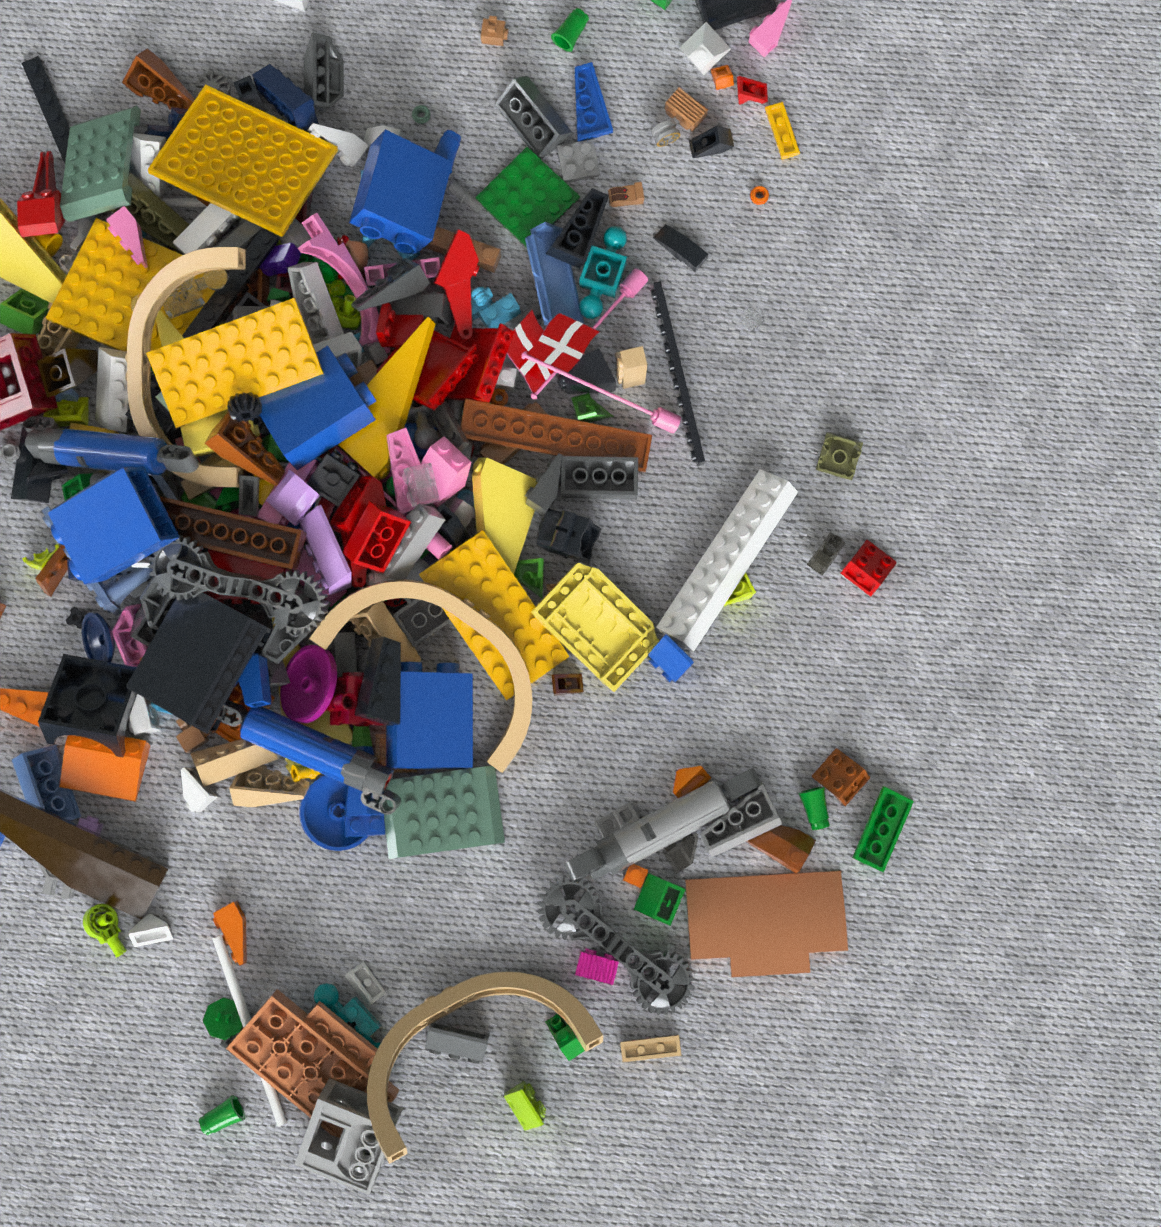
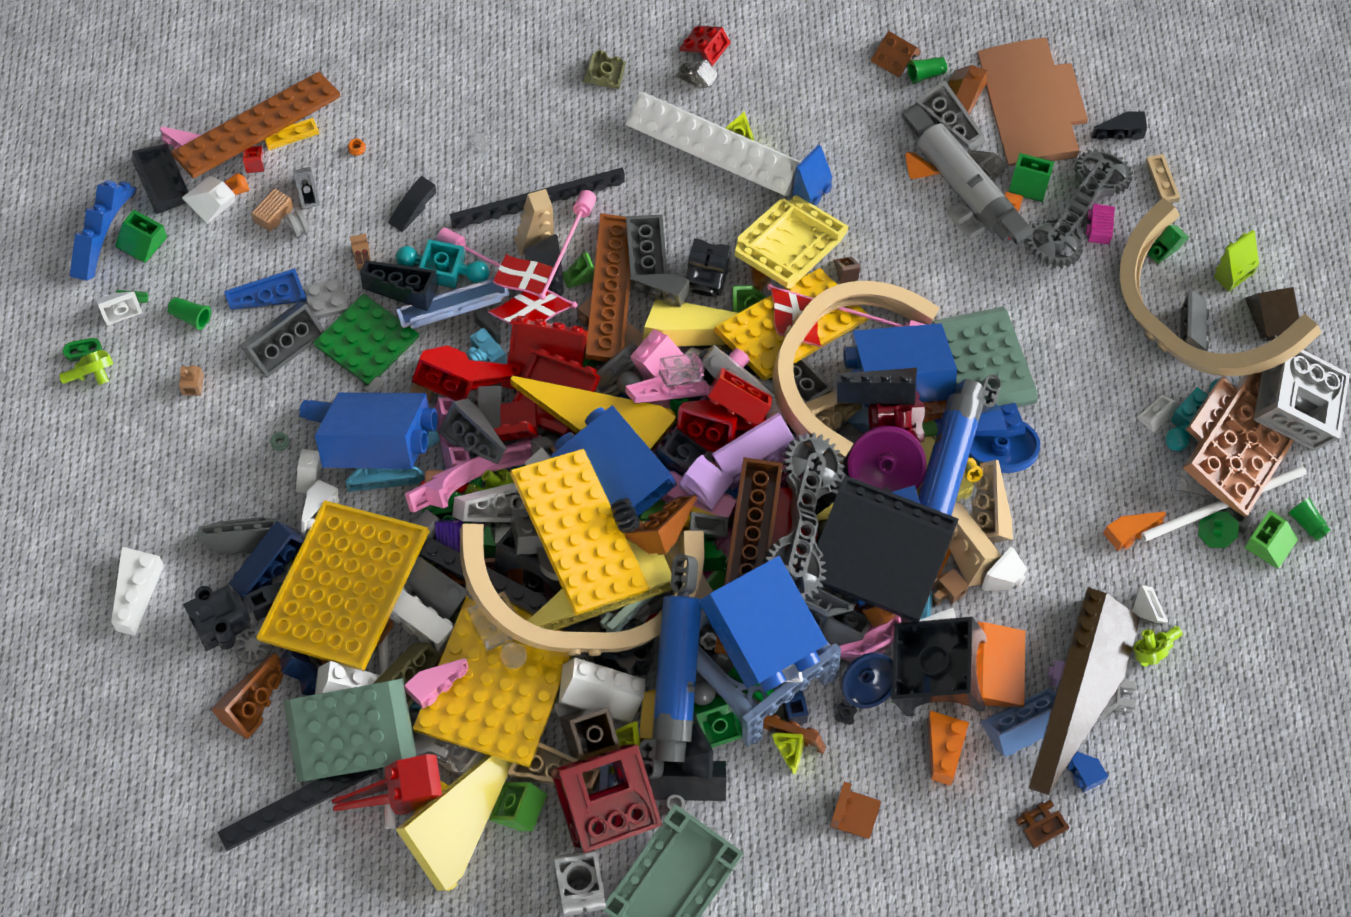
camera: 100 degrees left, 20 degrees down
(203, 1070) = (1272, 540): none -> bright green slope
(235, 51) = (217, 616): none -> black piece
(467, 1135) = (1273, 311): none -> dark brown slope
(512, 617) = (789, 303): none -> flag
(723, 1022) = (1127, 125): none -> black slope
(790, 94) = (255, 124): none -> dark orange plate
(883, 829) = (936, 20): green slope -> none

